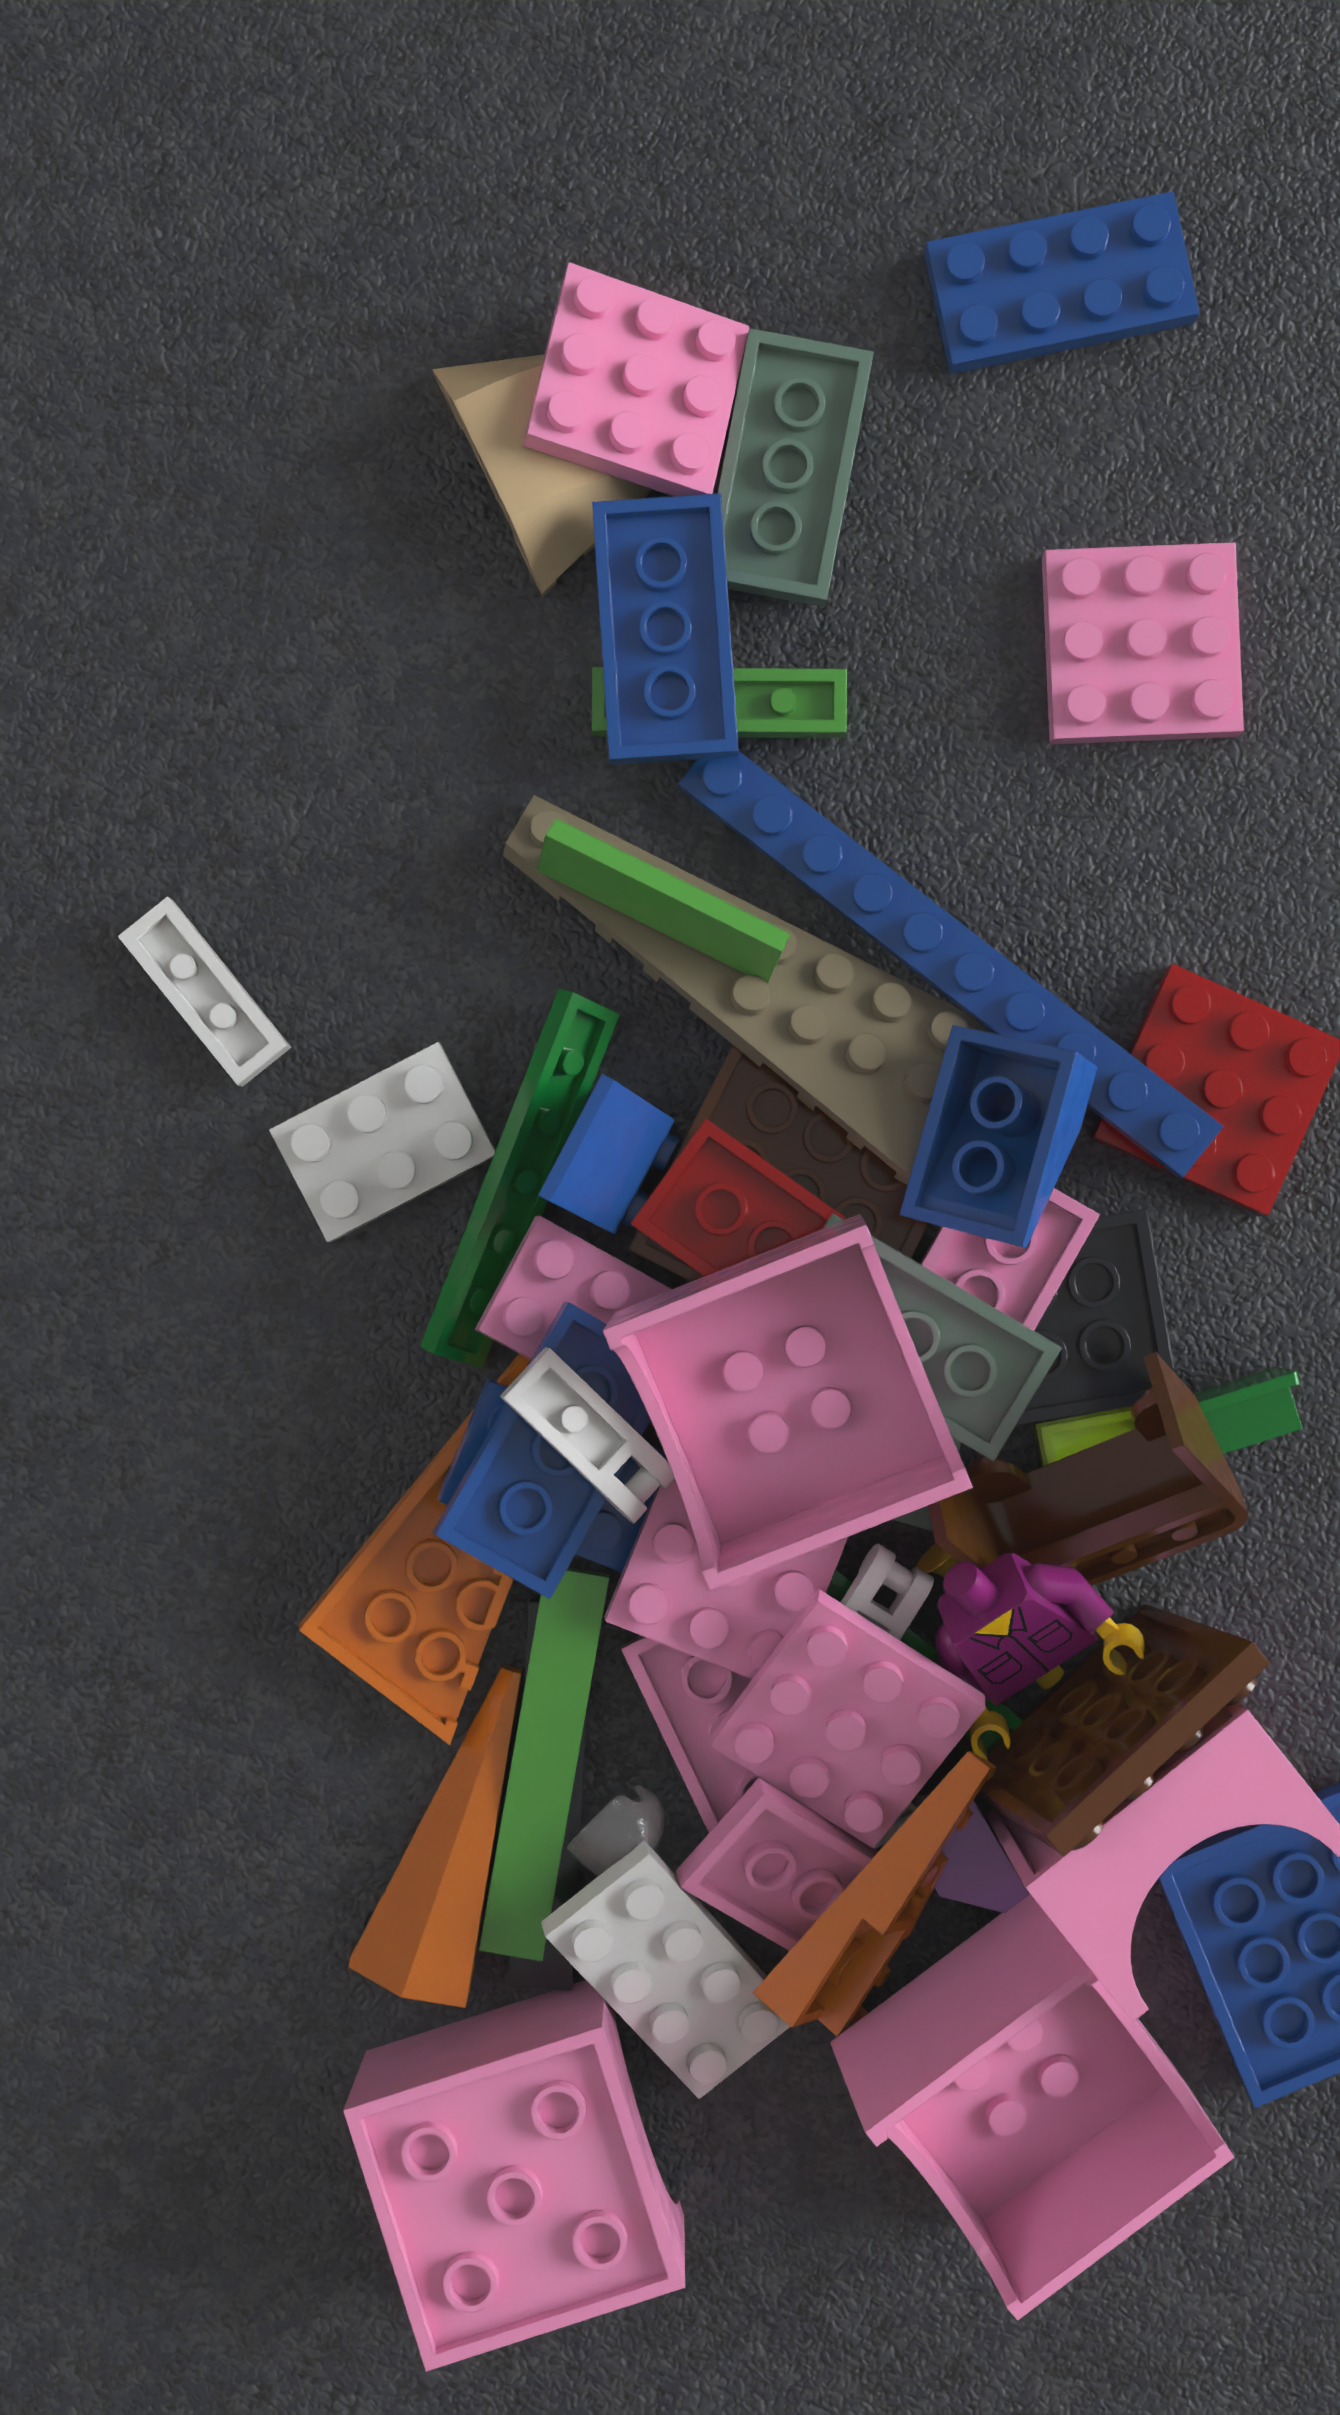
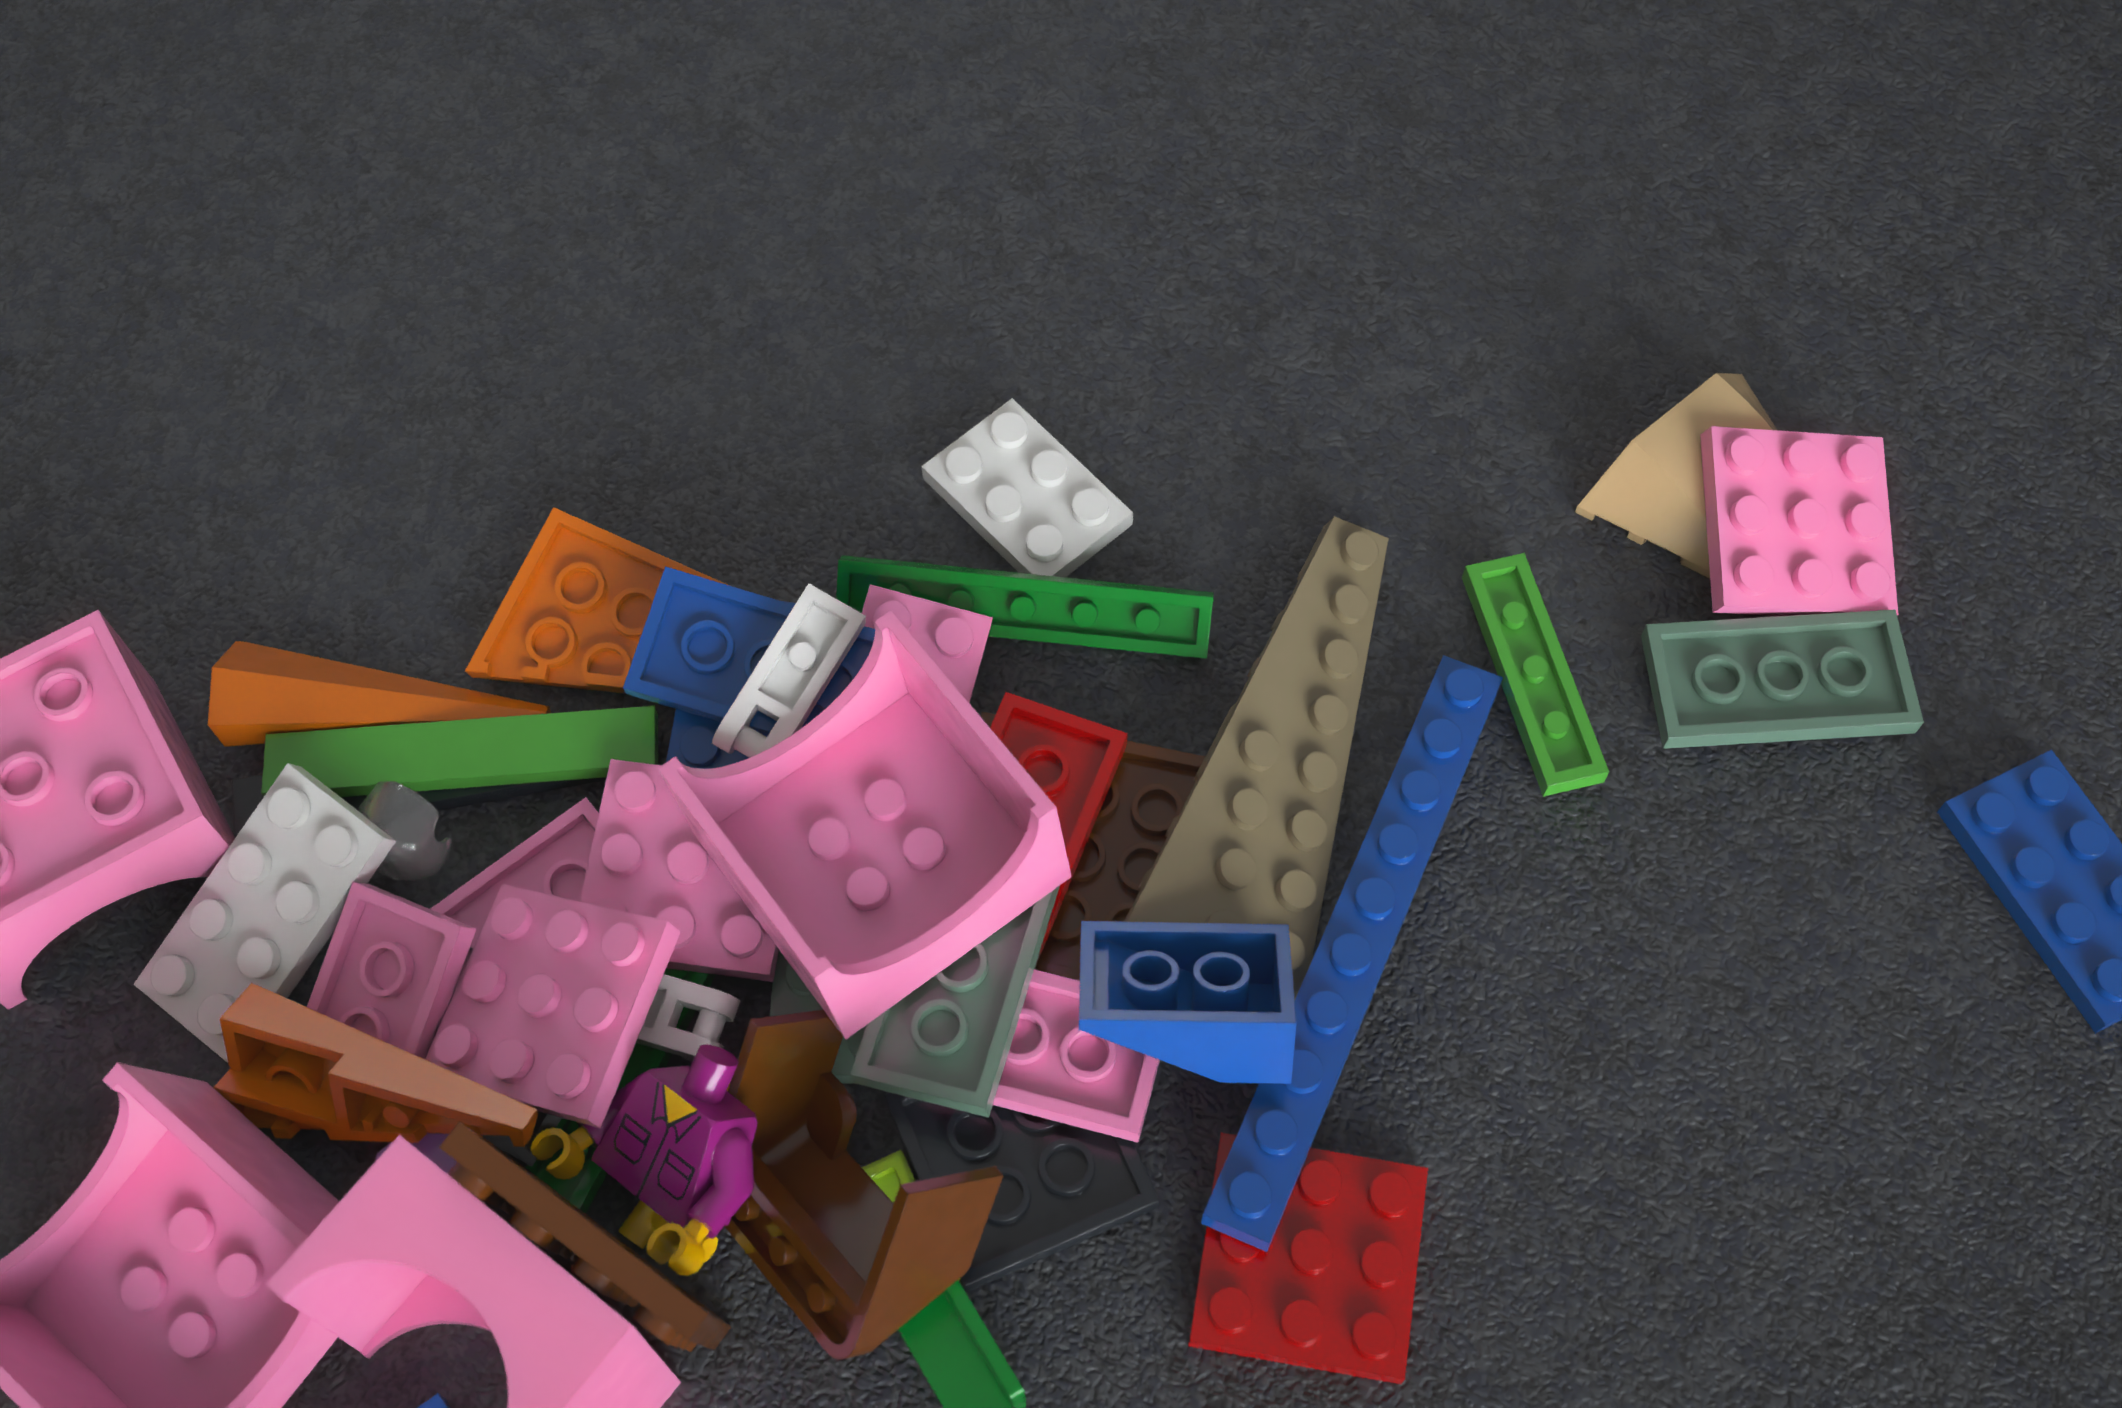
camera: 75 degrees right, 25 degrees down
(204, 991) = (1120, 323): white plate -> none
(610, 1157) = (1066, 640): blue slope -> none
(661, 901) = (1323, 648): bright green tile -> none
(665, 629) = (1581, 595): blue plate -> none
(1142, 643) = (1748, 1060): bright pink plate -> none

